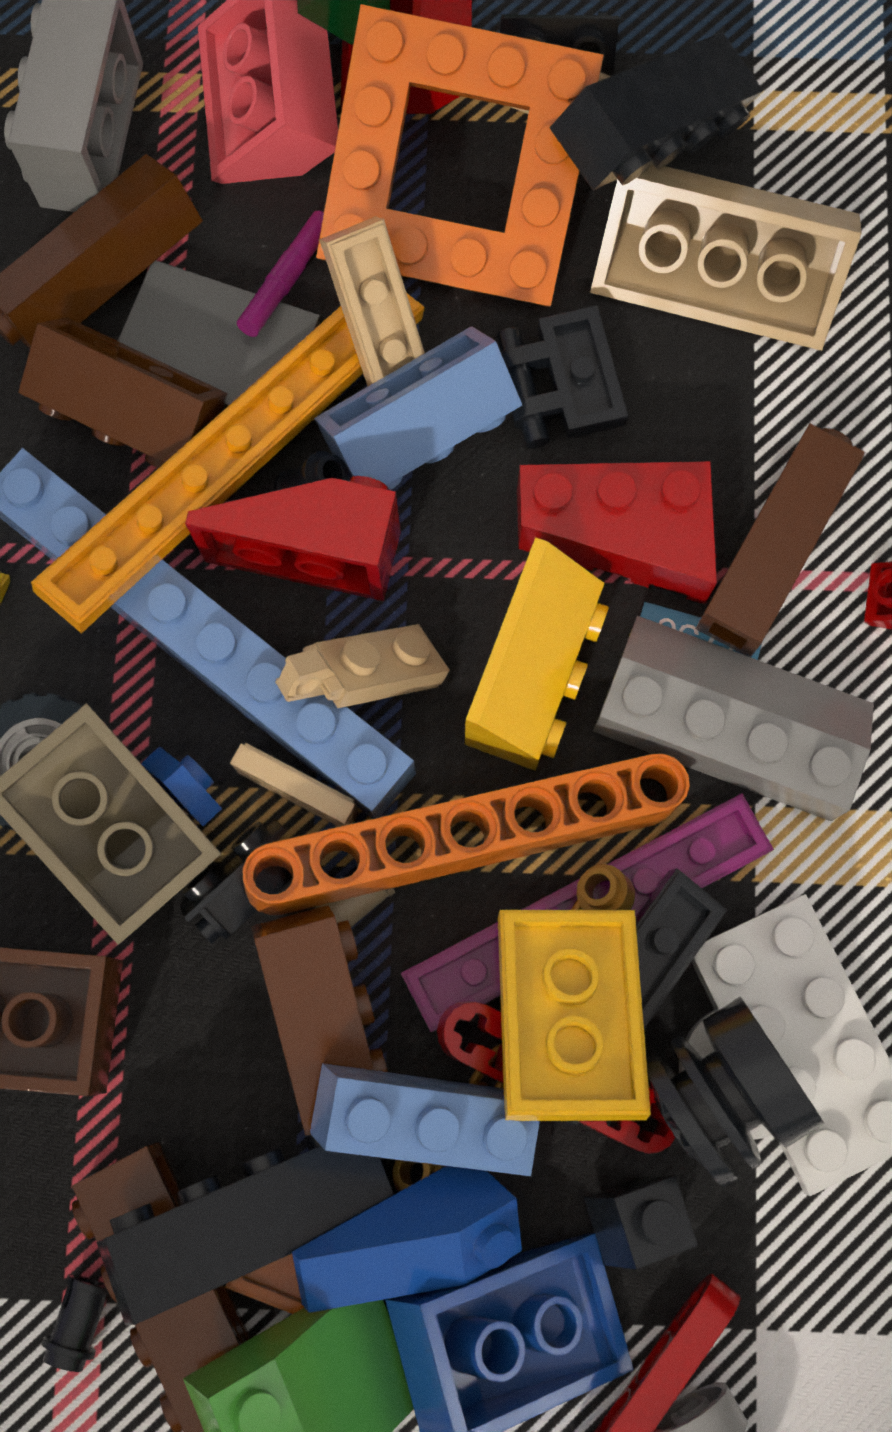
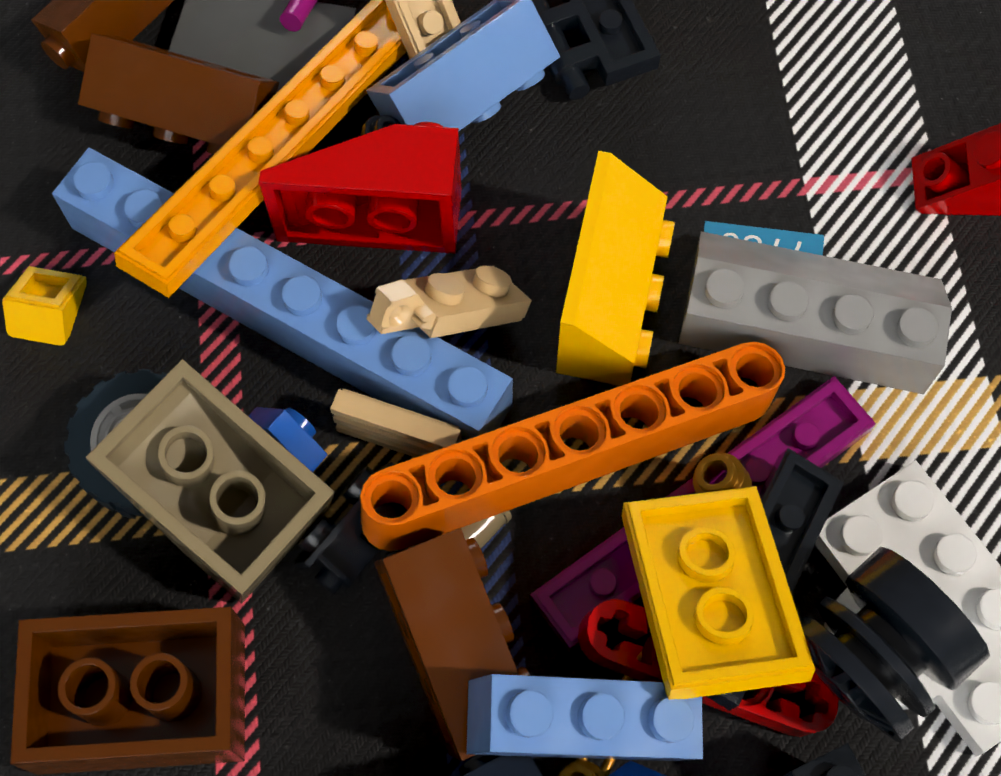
camera: 10 degrees left, 10 degrees down
(625, 520) = (682, 139): red wedge -> none
(781, 540) = (823, 145): reddish brown brick -> none

